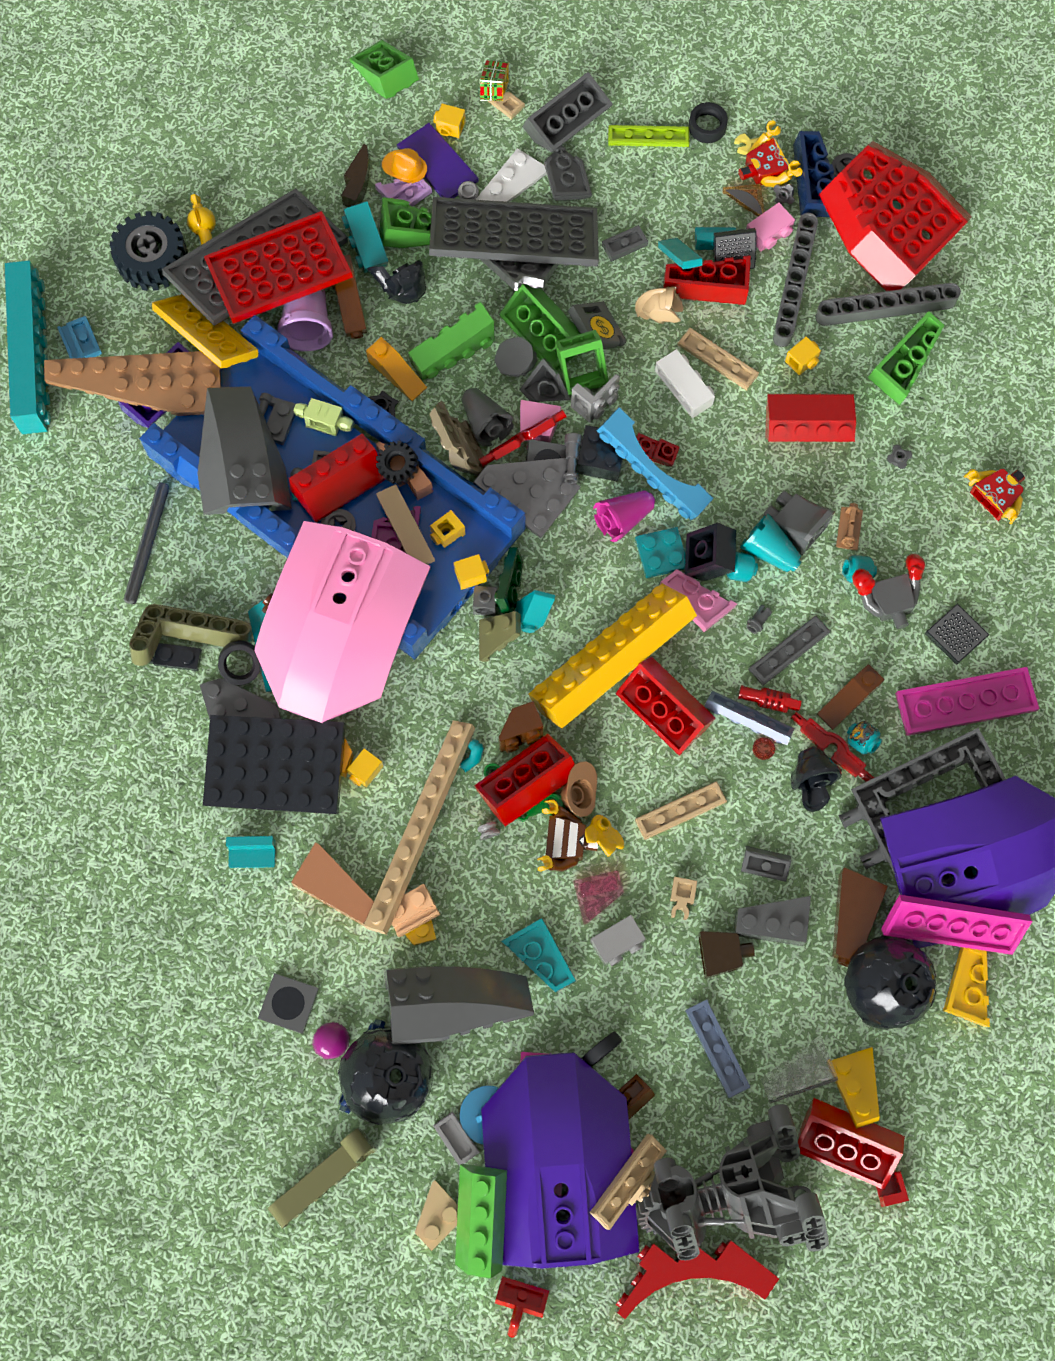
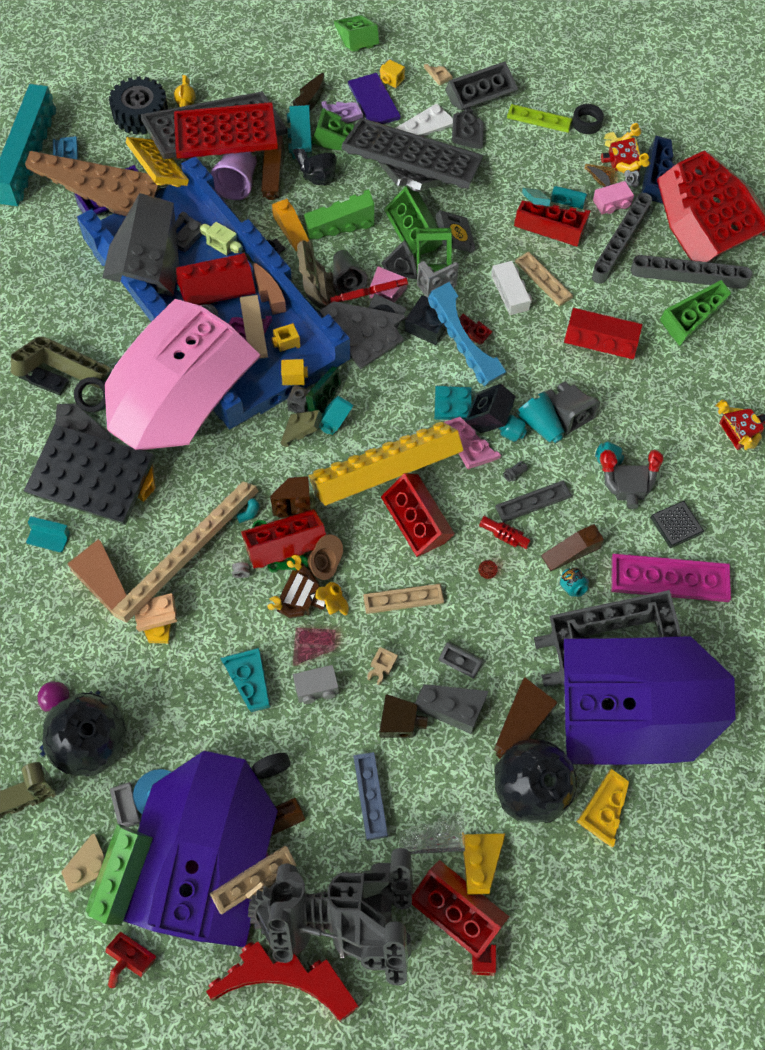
camera: 15 degrees right, 10 degrees down
(146, 543) = (57, 298): dark grey axle -> none
(288, 1003) = (30, 658): dark grey tile -> none
(364, 768) = (159, 497): yellow brick -> none
(386, 457) = (258, 271): black tyre -> none
(405, 165) = (348, 94): light orange piece -> none
(450, 1000) = (150, 684): dark grey wedge -> none
(468, 190) = (390, 120): light grey plate -> none
(492, 80) = (431, 53): piece -> none
(515, 357) = (385, 238): dark grey hat -> none
(572, 443) = (407, 303): flat silver piece -> none
(622, 513) = (430, 365): dark pink cone -> none
(624, 243) = (496, 183): dark grey plate -> none
(657, 305) = (508, 227): tan helmet -> none
(735, 244) = (582, 199): tile -> none
(749, 717) = (487, 545): sand blue plate -> none
(803, 356) = (611, 290): yellow brick -> none
(812, 775) = (522, 598): black head -> none
(823, 739) = (539, 576): red piece -> none
(849, 527) = (611, 422): medium nougat hinge -> none
(899, 462) = (666, 385): dark grey plate -> none
(956, 924) = (606, 747): dark pink plate -> none

